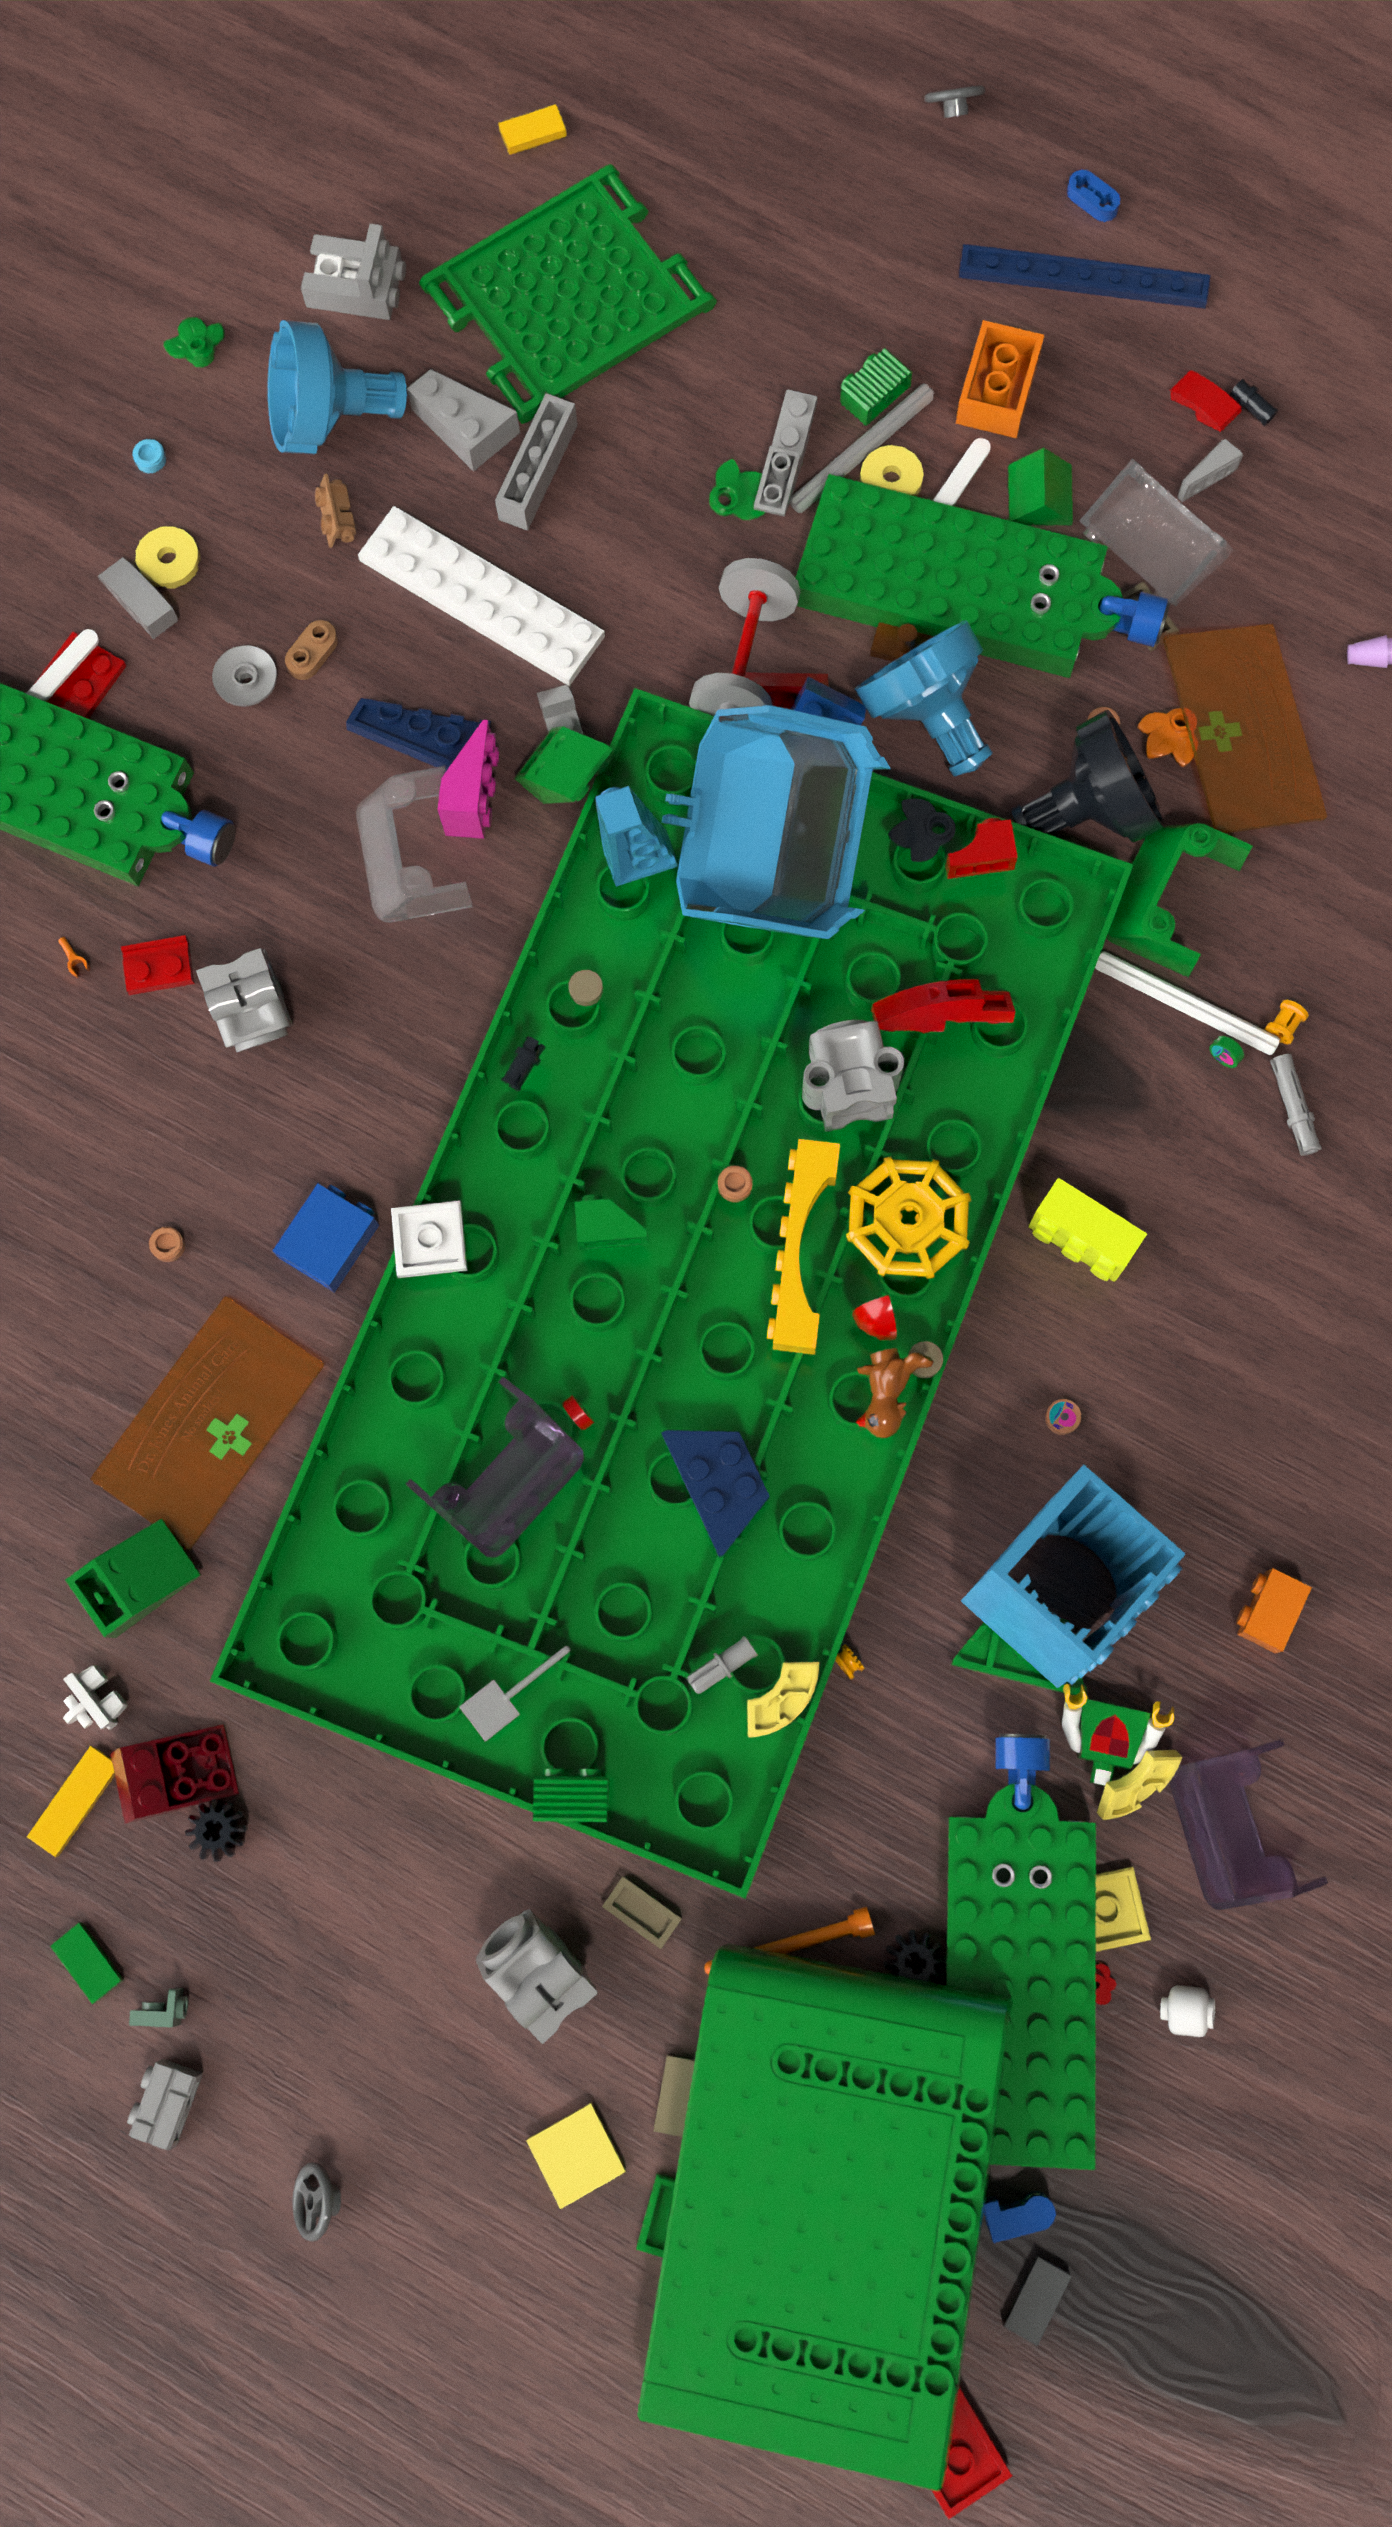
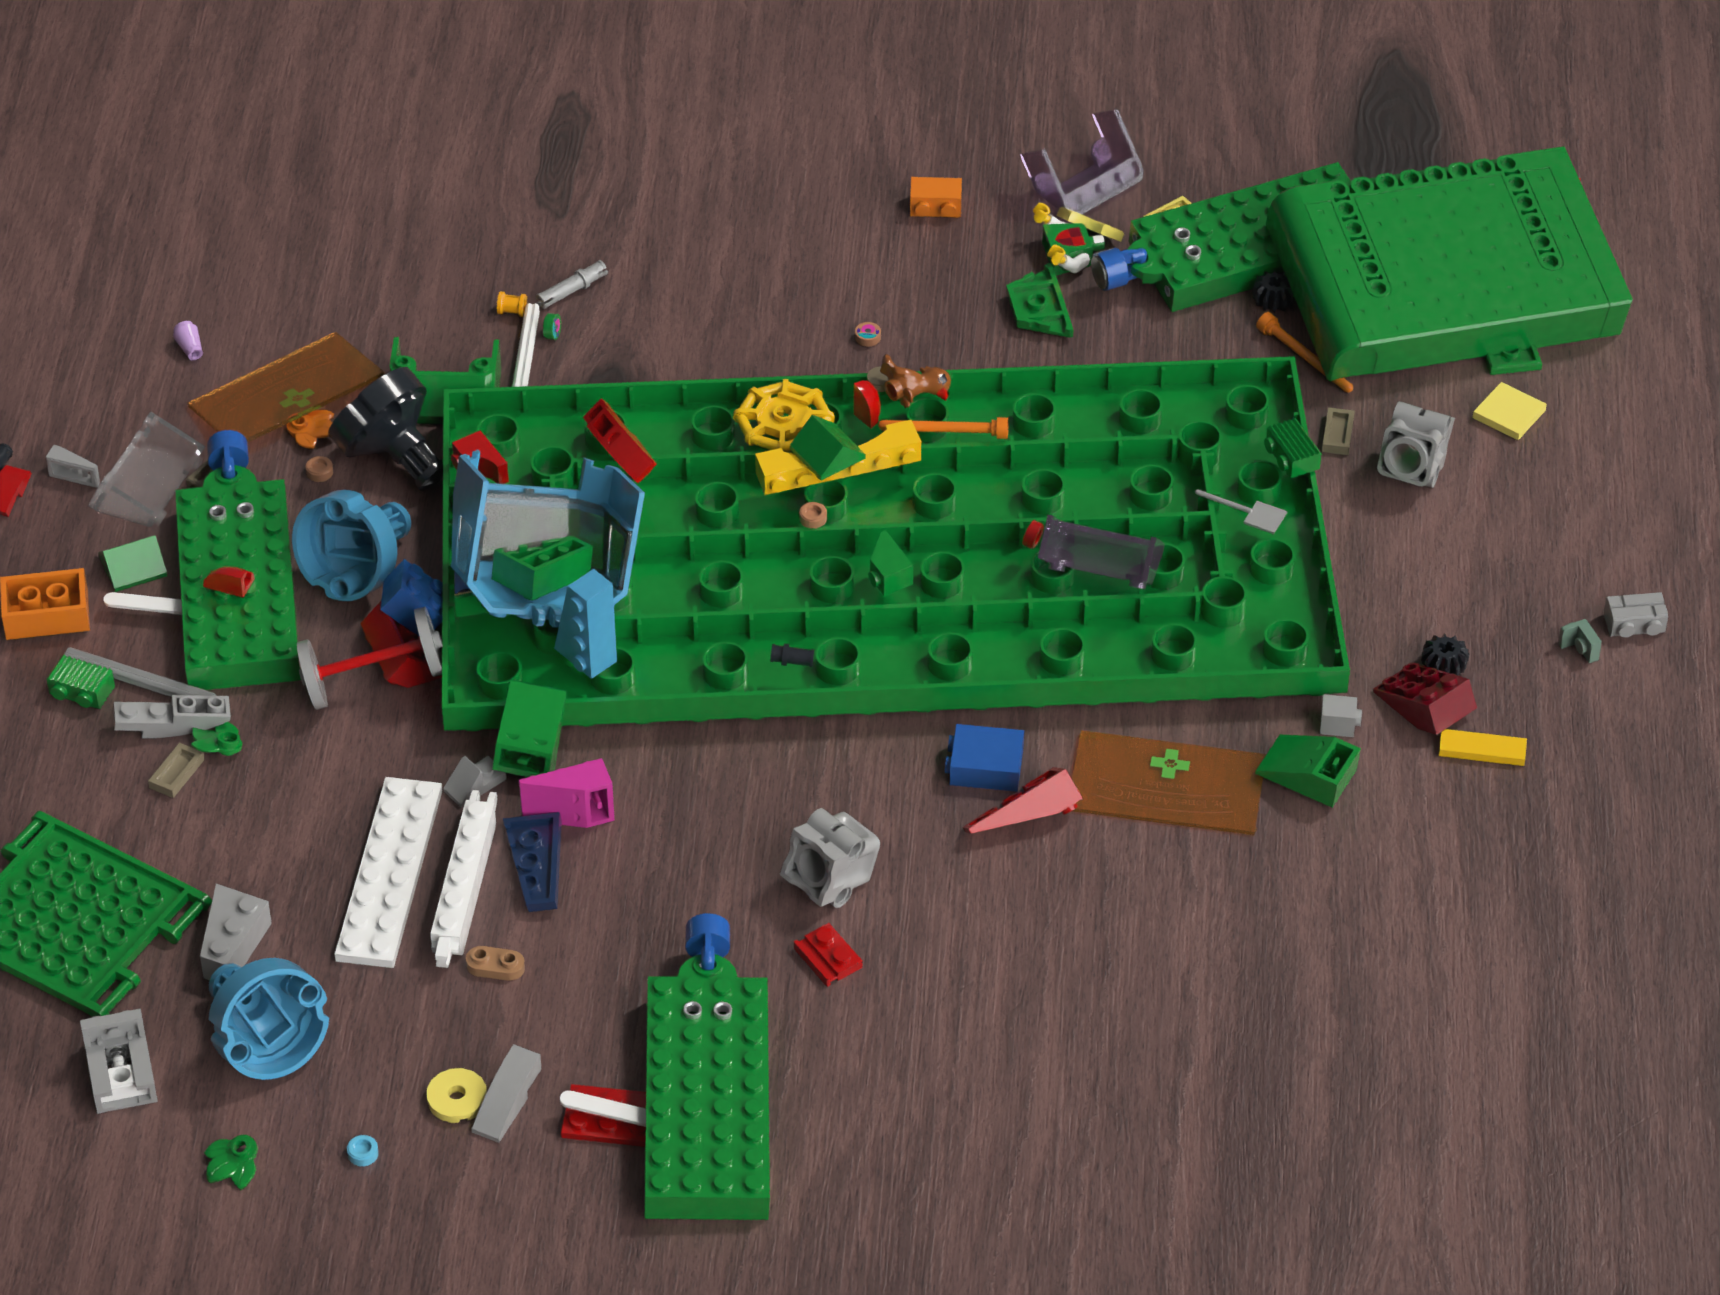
camera: 120 degrees left, 30 degrees down
(73, 958) = (856, 1008): orange hand -> none
(84, 1687) = (1411, 759): white hips -> none
(87, 1963) = (1581, 697): green tile -> none
(167, 1244) = (1049, 858): nougat tile -> none
(191, 1657) = (1339, 715): none -> light grey brick
(238, 1255) = (1043, 797): none -> wedge
(244, 663) = (545, 989): light grey dish -> none
(319, 2202) = (1622, 512): dark grey piece -> none
(333, 498) = (359, 994): medium nougat hinge -> none
(395, 890) = (648, 837): clear windscreen -> none
(424, 651) = (463, 878): none -> white hinge
(429, 1239) = (957, 664): white tile -> none
(536, 462) = (253, 863): light grey brick -> none
(585, 987) = (710, 645): dark tan tile -> none
(674, 2095) = (1437, 376): dark tan tile -> none
(714, 441) = (176, 770): none -> dark tan tile
(719, 1480) = (1033, 452): dark blue wing -> none
(721, 1665) = (1154, 408): light grey axle -> none
(745, 829) = (542, 568): none -> green wedge
(775, 1456) = (996, 427): none -> orange piece
(785, 1700) = (1148, 374): light yellow tile -> none
(803, 1224) = (825, 448): none -> green slope
(850, 1067) = (700, 463): light grey piece -> none
(894, 641) = (307, 599): reddish brown tile -> none
(895, 460) = (154, 641): light yellow tile -> none
(925, 545) = (230, 580): none -> red brick
(1086, 1231) = (733, 341): neon yellow brick -> none
(1127, 1544) = (985, 258): dark azure piece -> none
(1188, 2011) = (1214, 164): white head -> none

